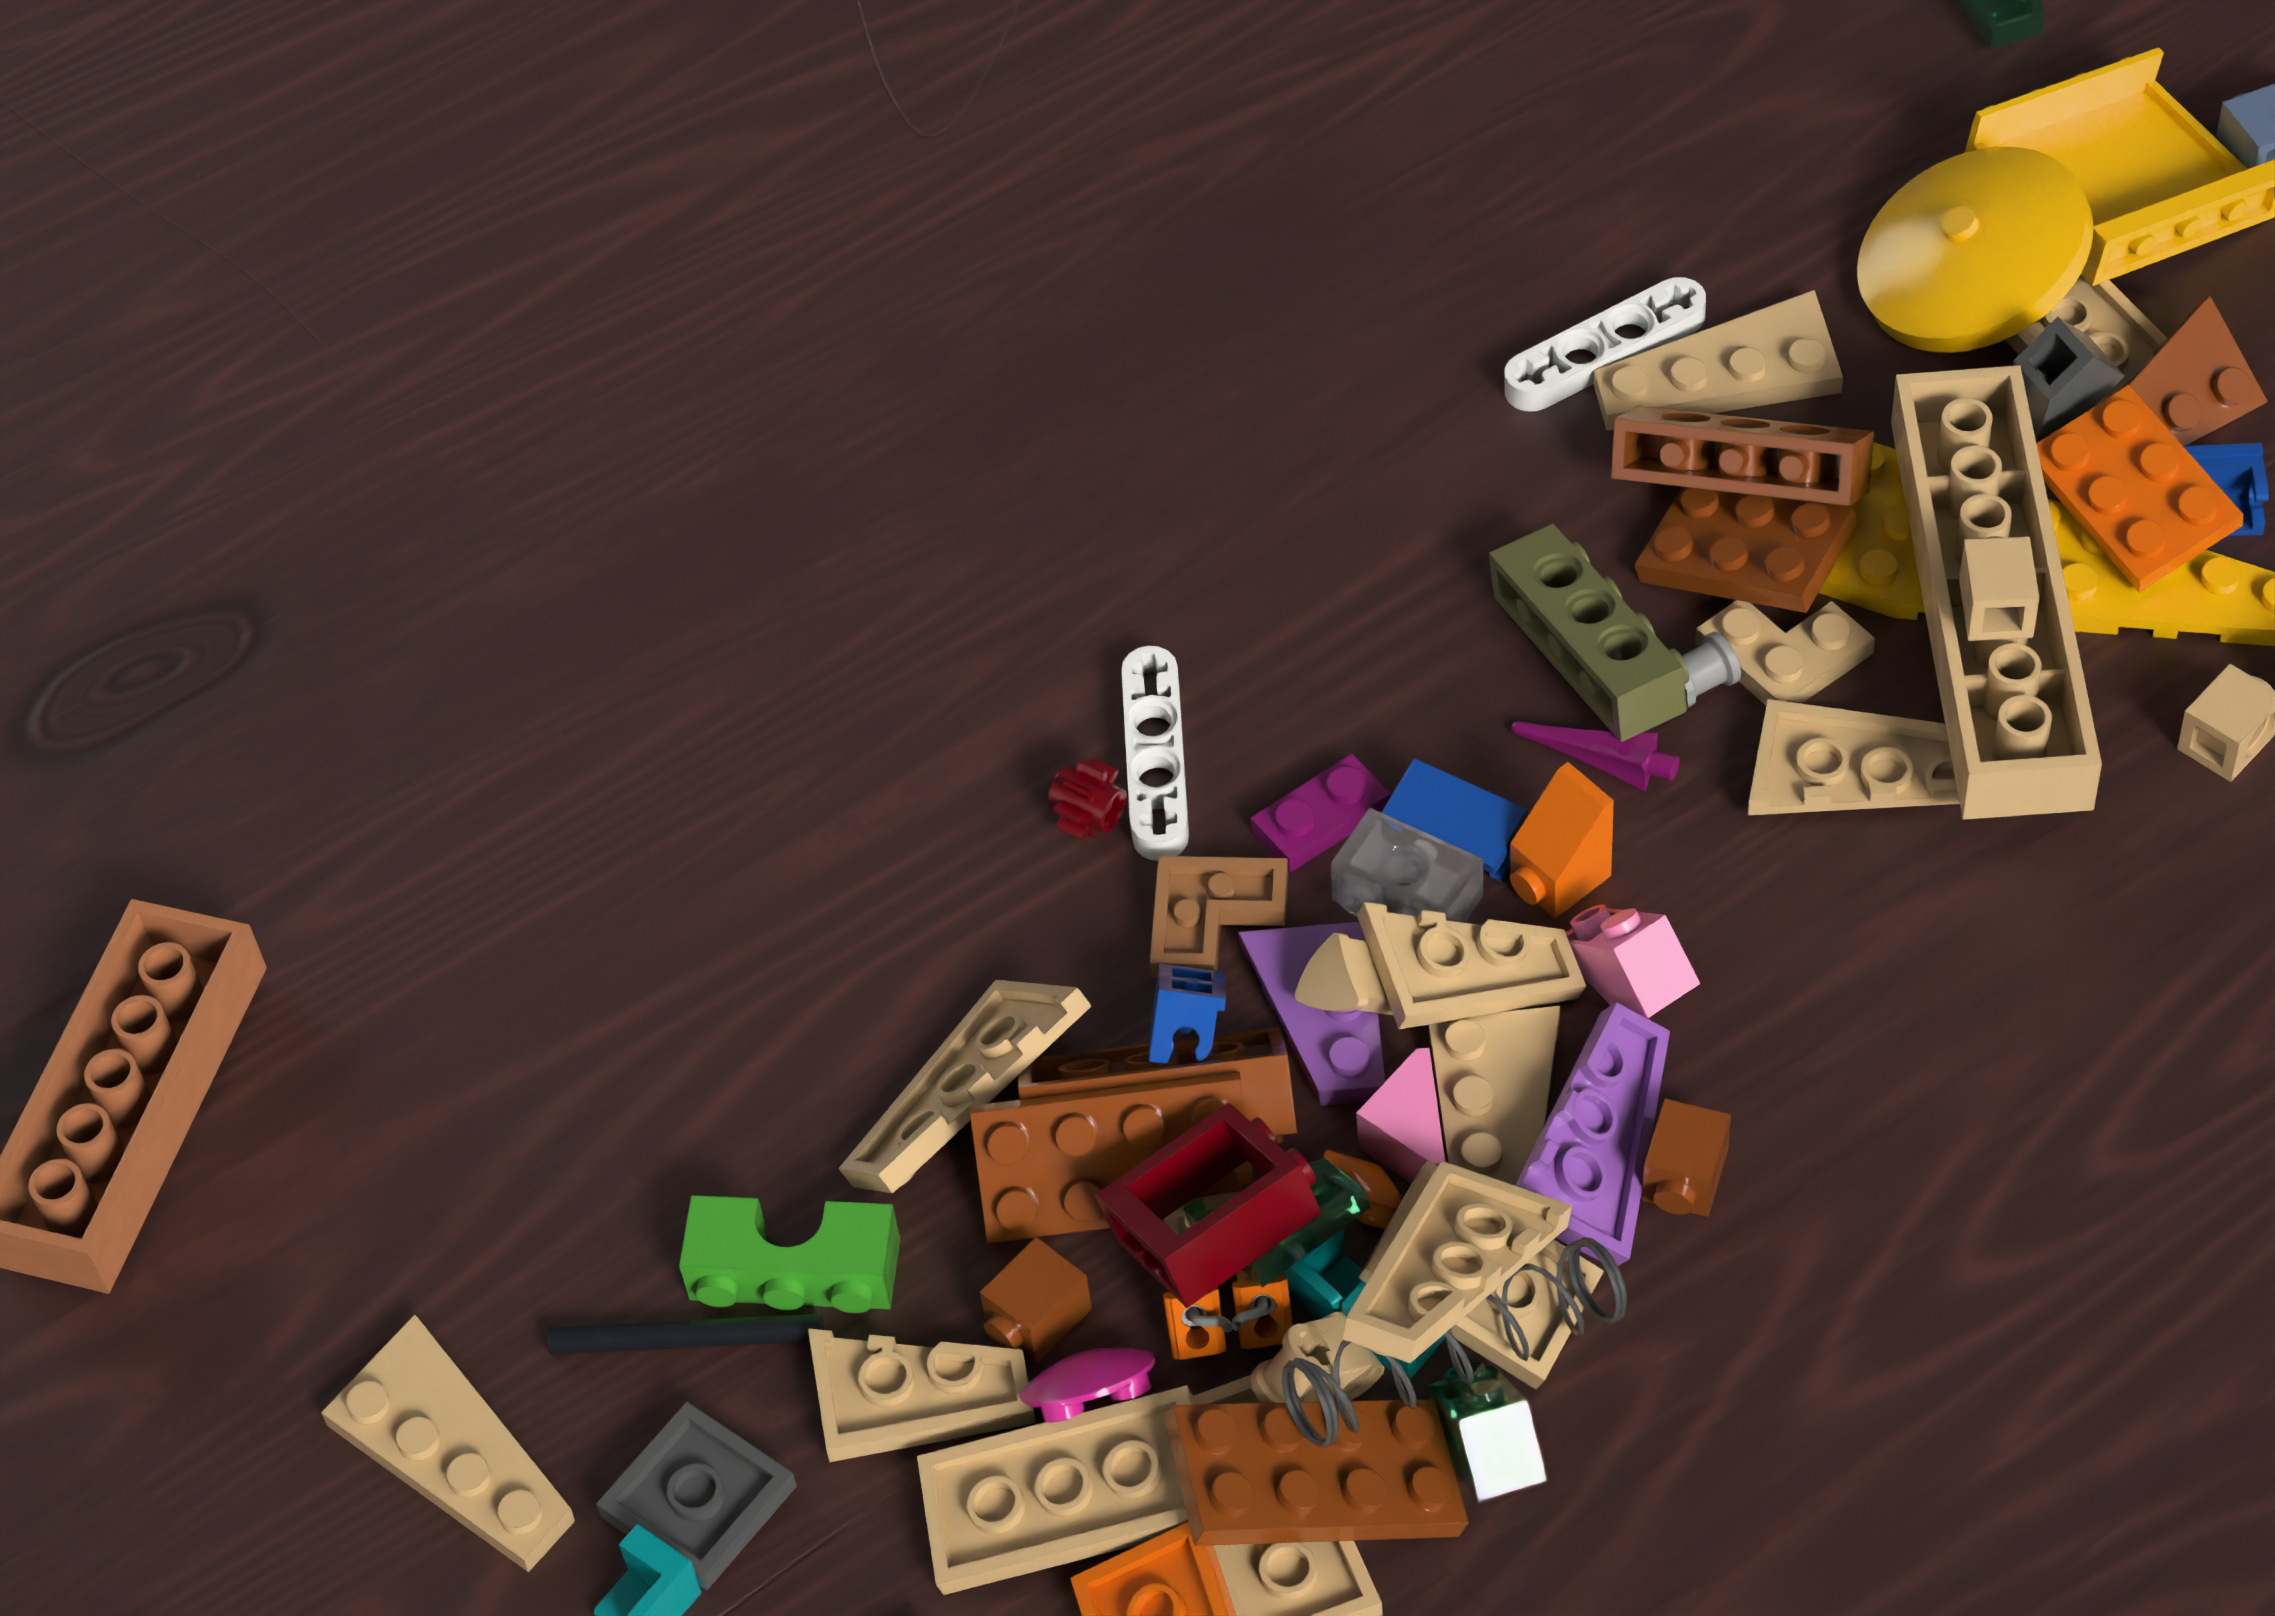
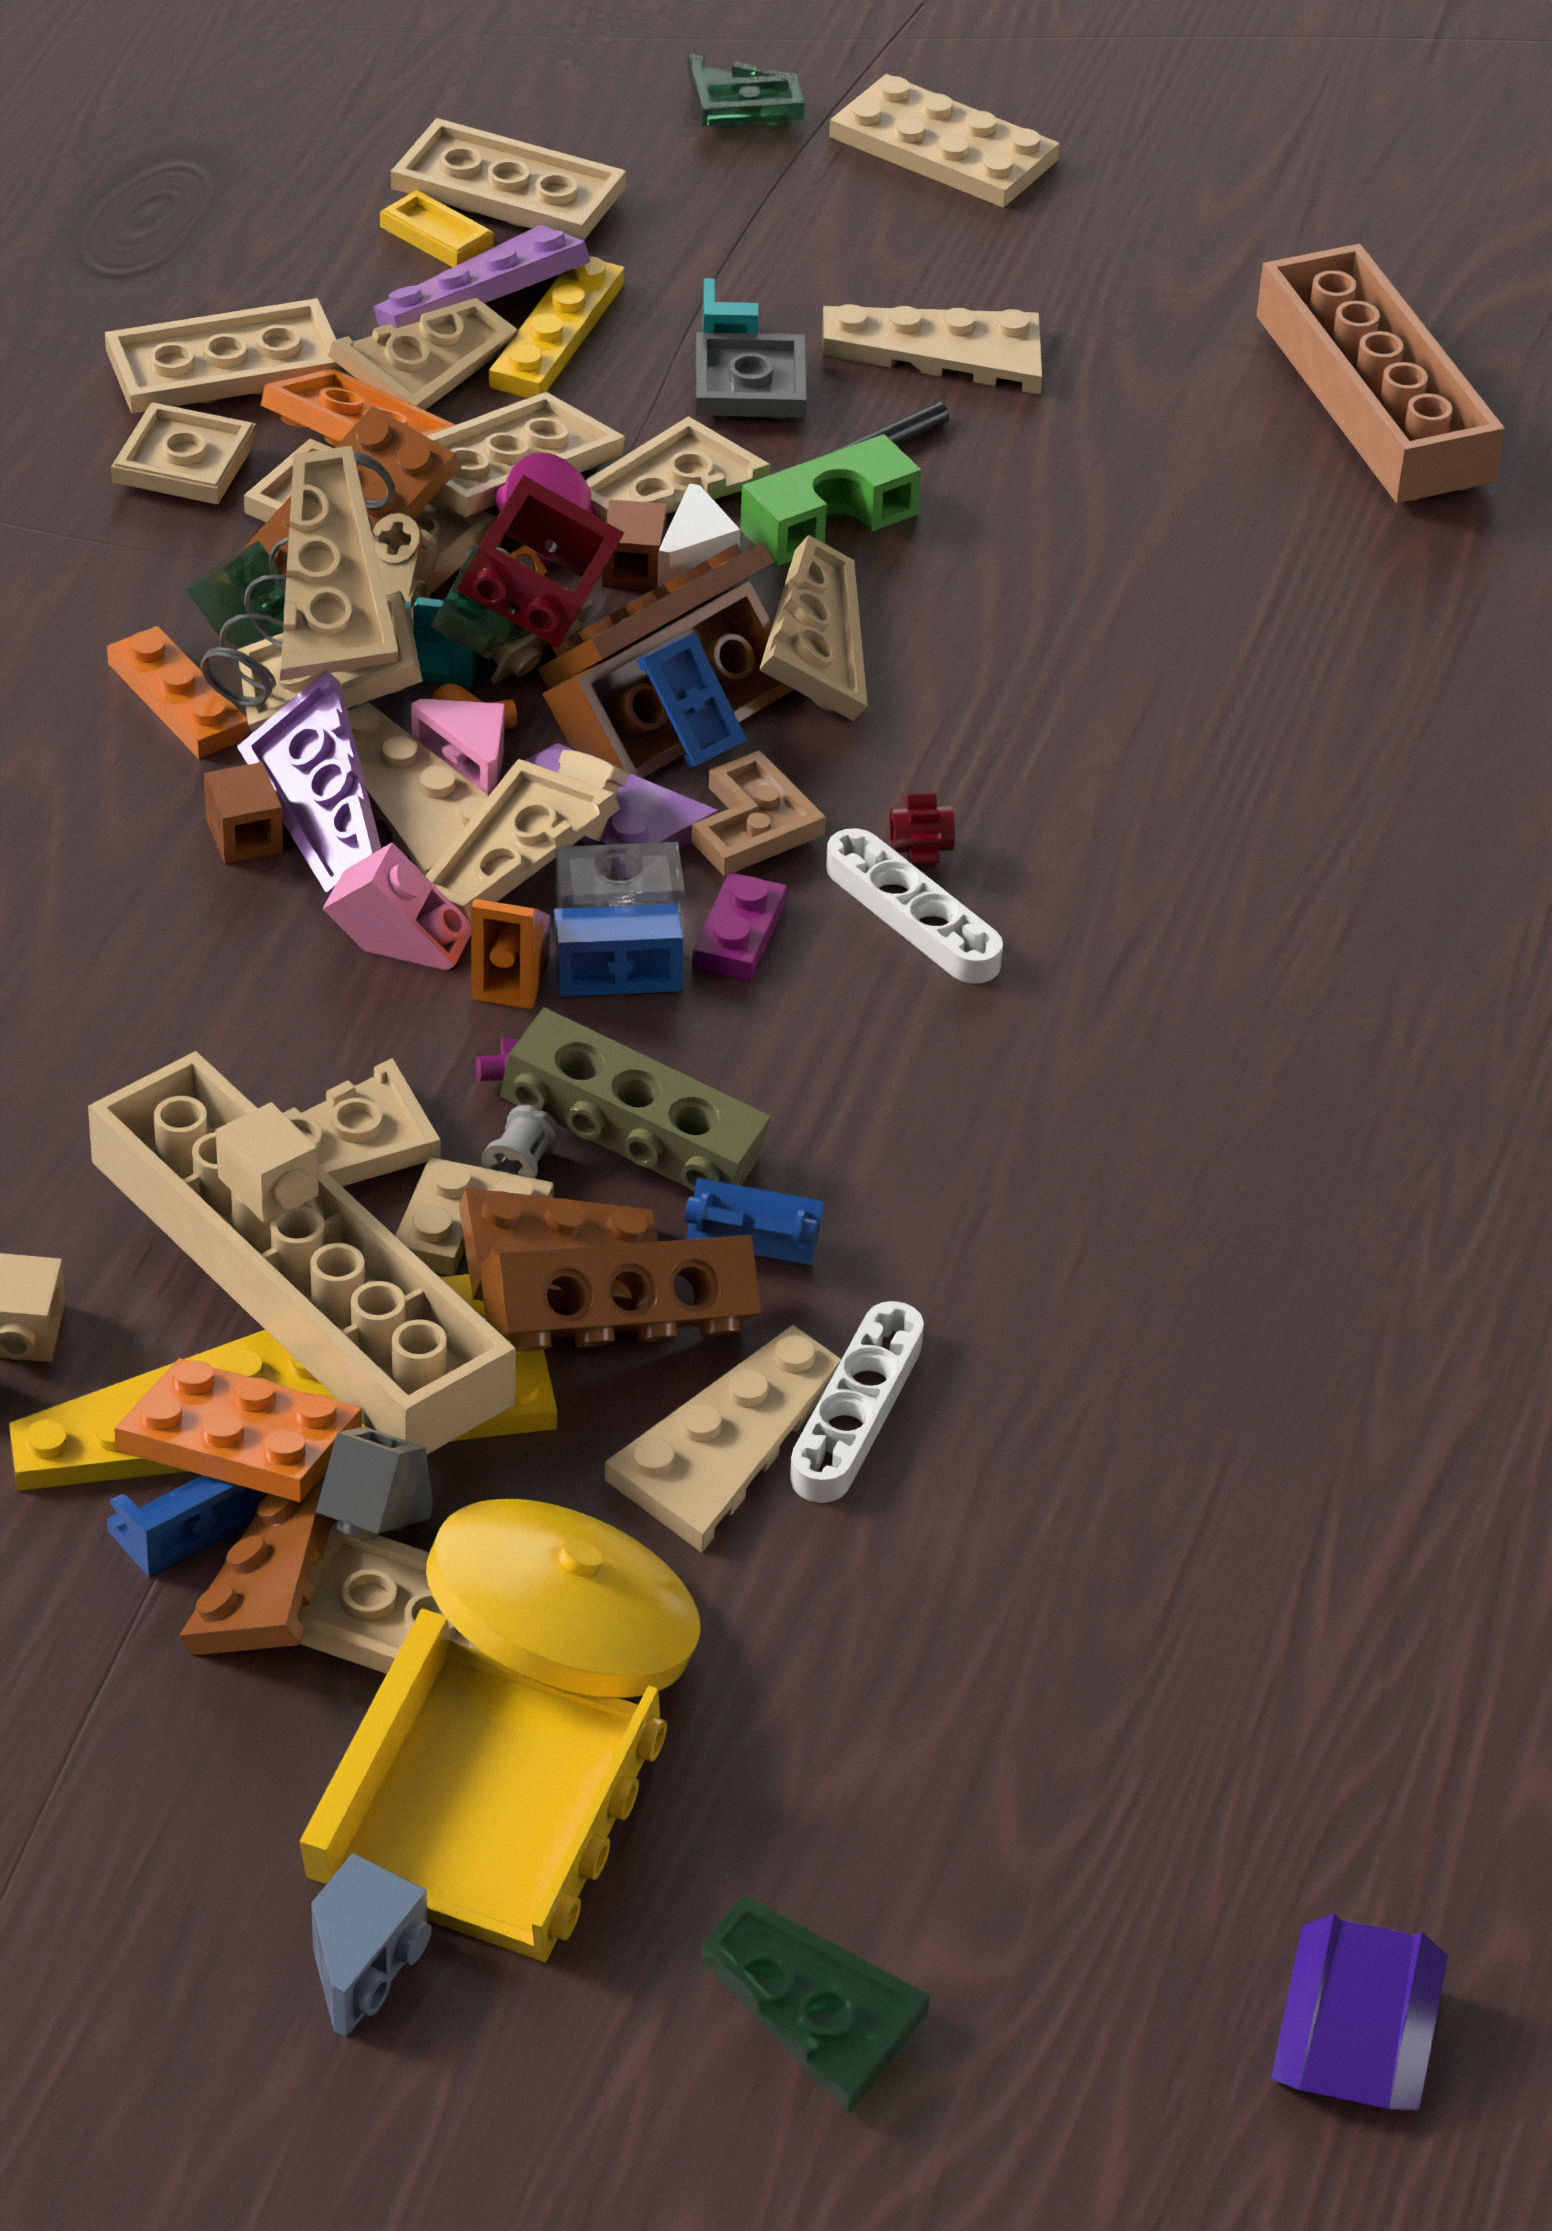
camera: 135 degrees right, 10 degrees down
(963, 1261) = (695, 534): none -> white slope
(1547, 495) = (779, 1223): none -> blue hinge
(1632, 1390) = (177, 692): none -> orange plate

